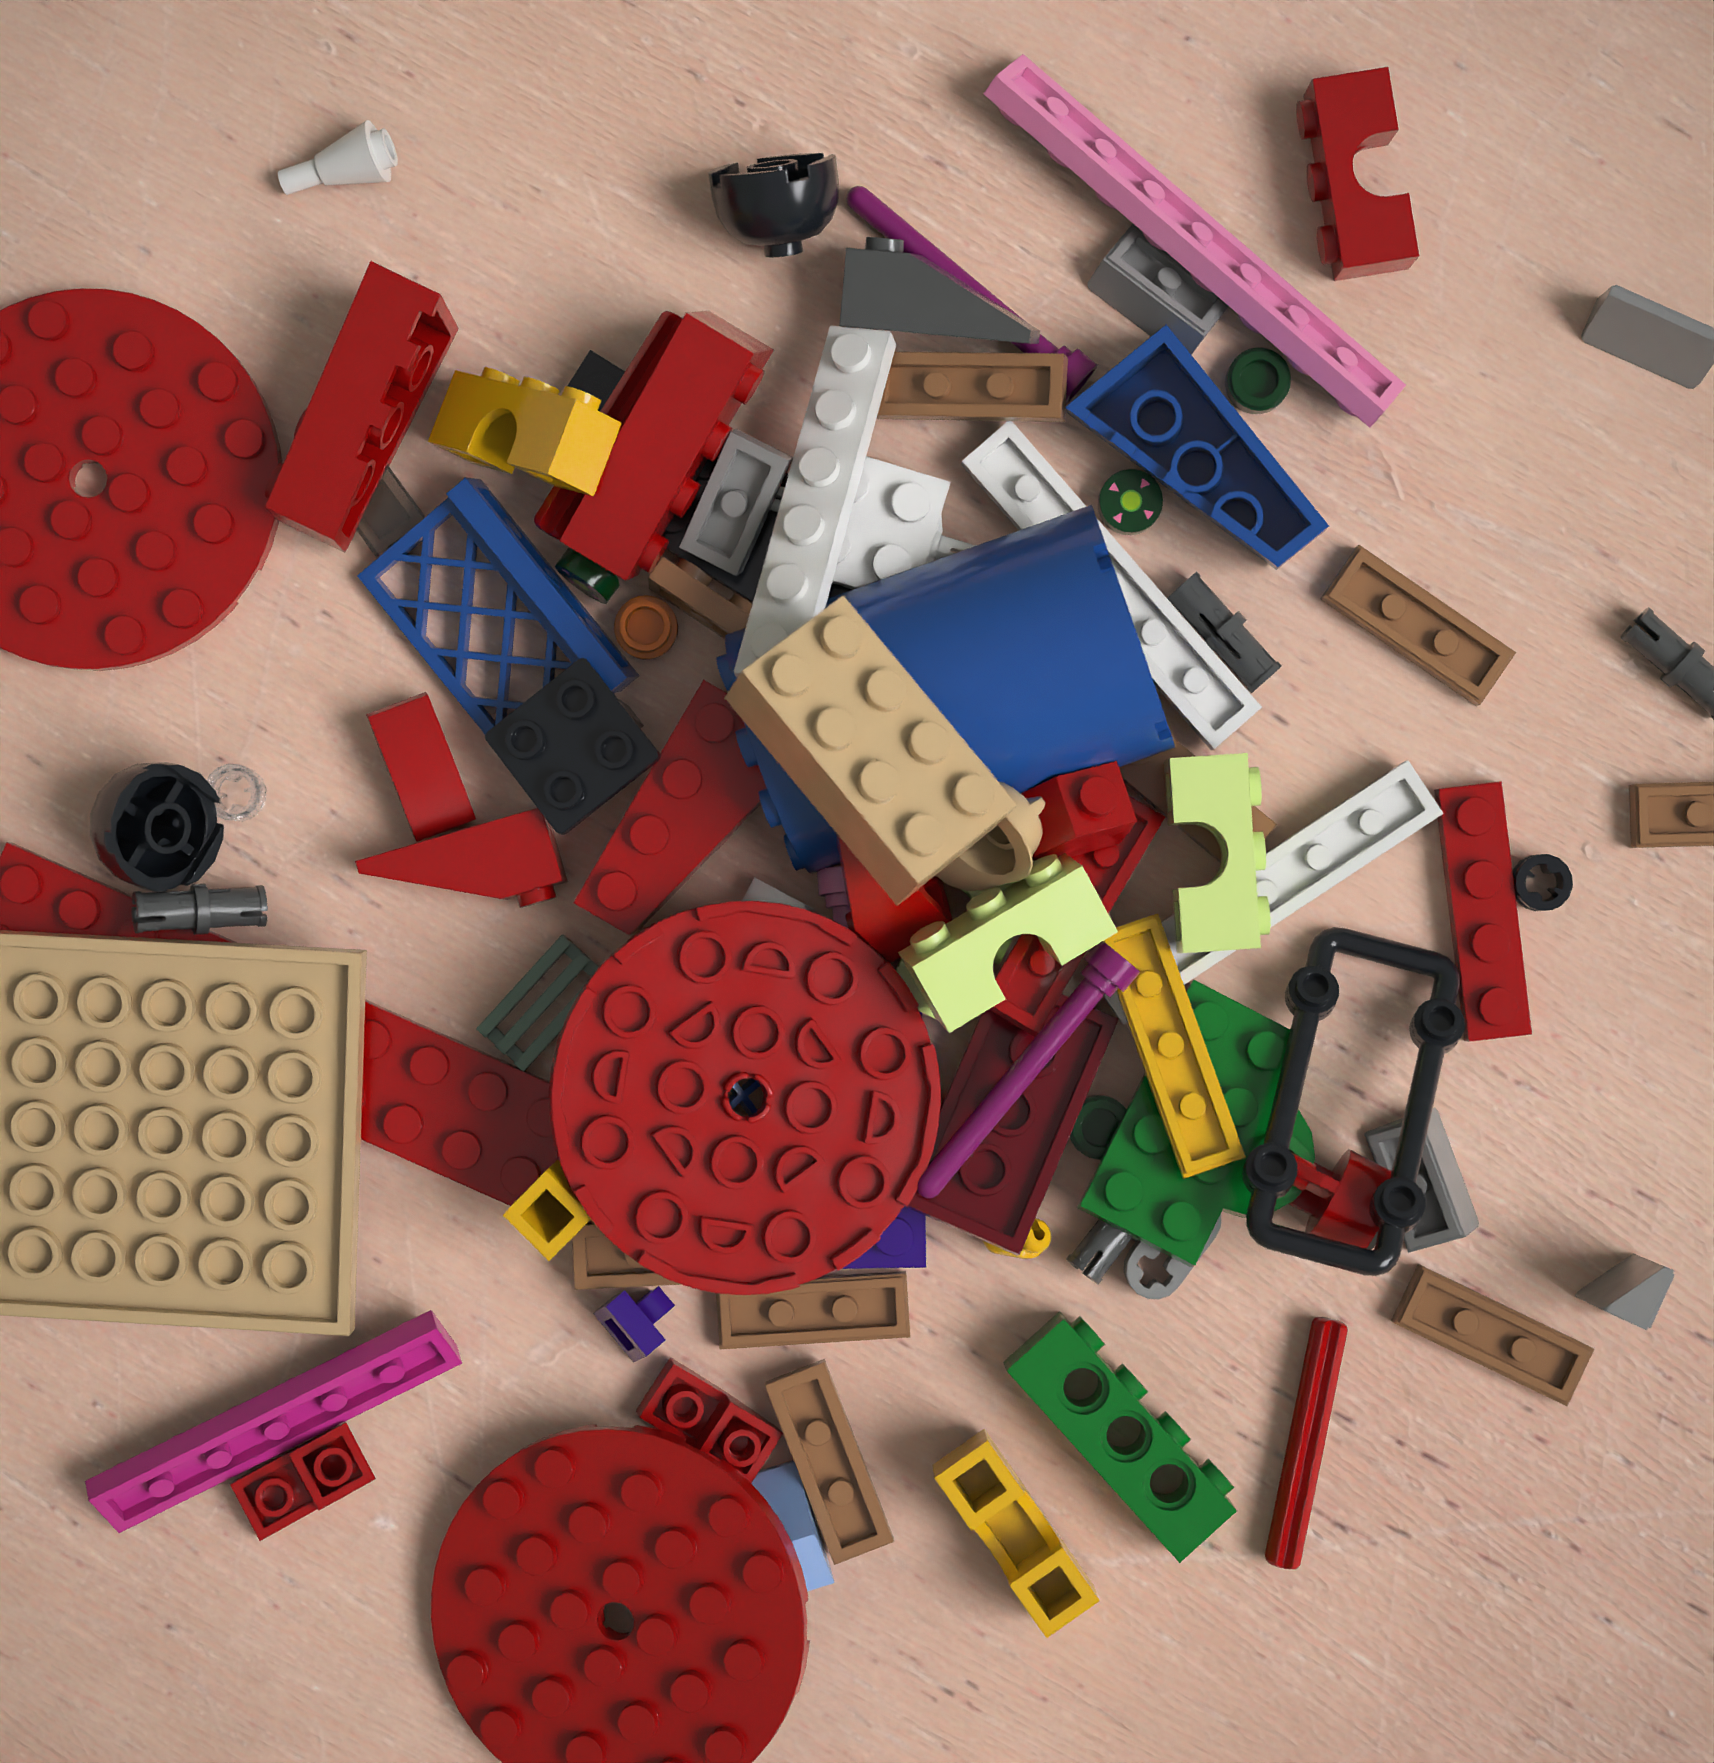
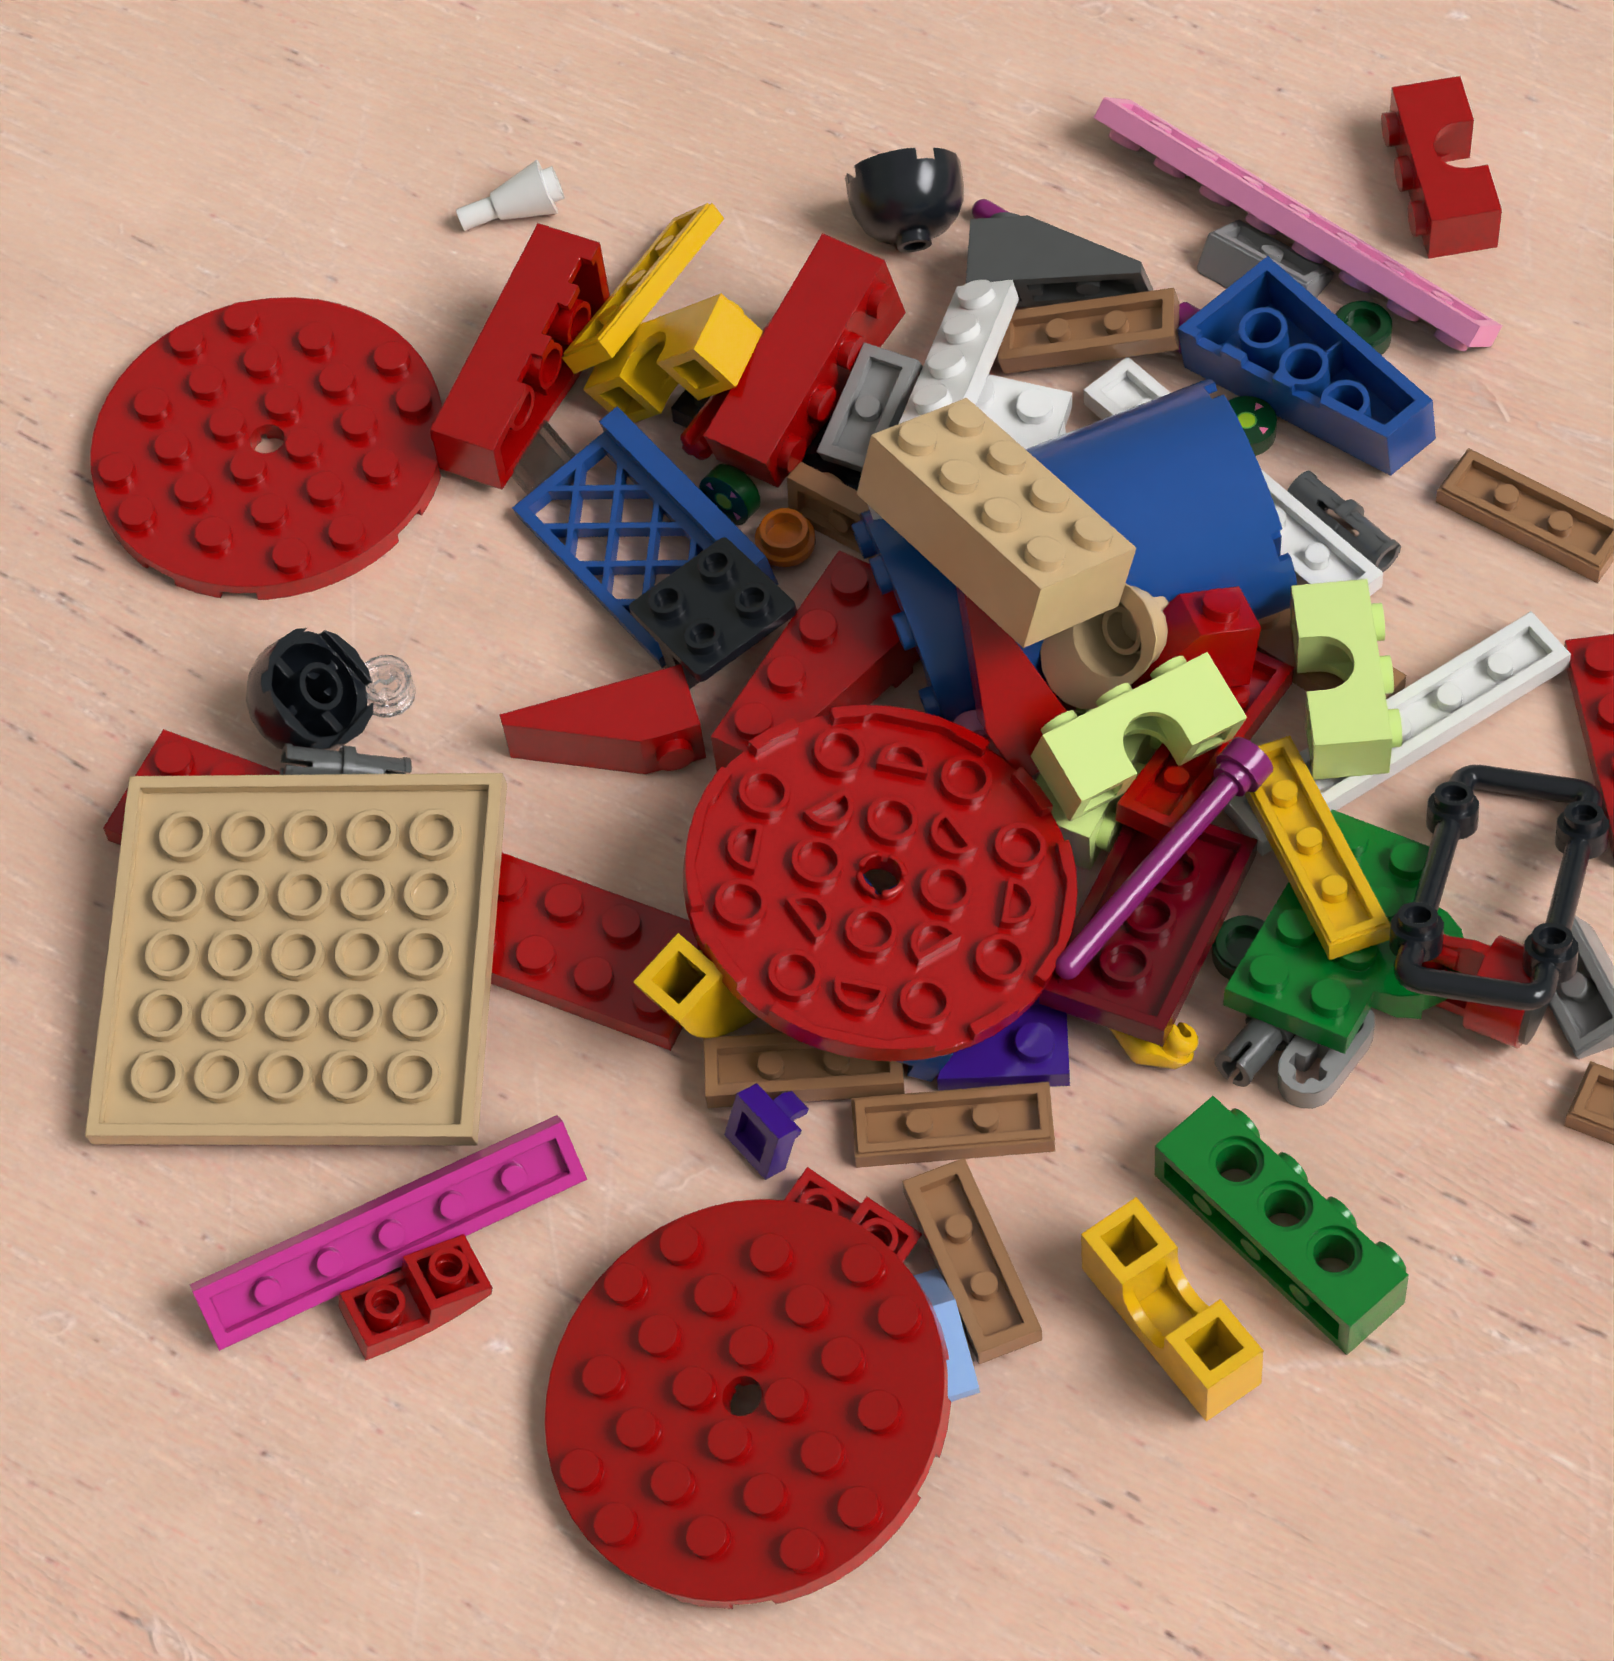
camera: 15 degrees right, 30 degrees down
(421, 766) = (563, 644): red slope -> none
(489, 312) = (642, 288): none -> yellow tile
(507, 1041) = (631, 873): sand green tile -> none
(1306, 1443) = (1481, 1237): red axle -> none

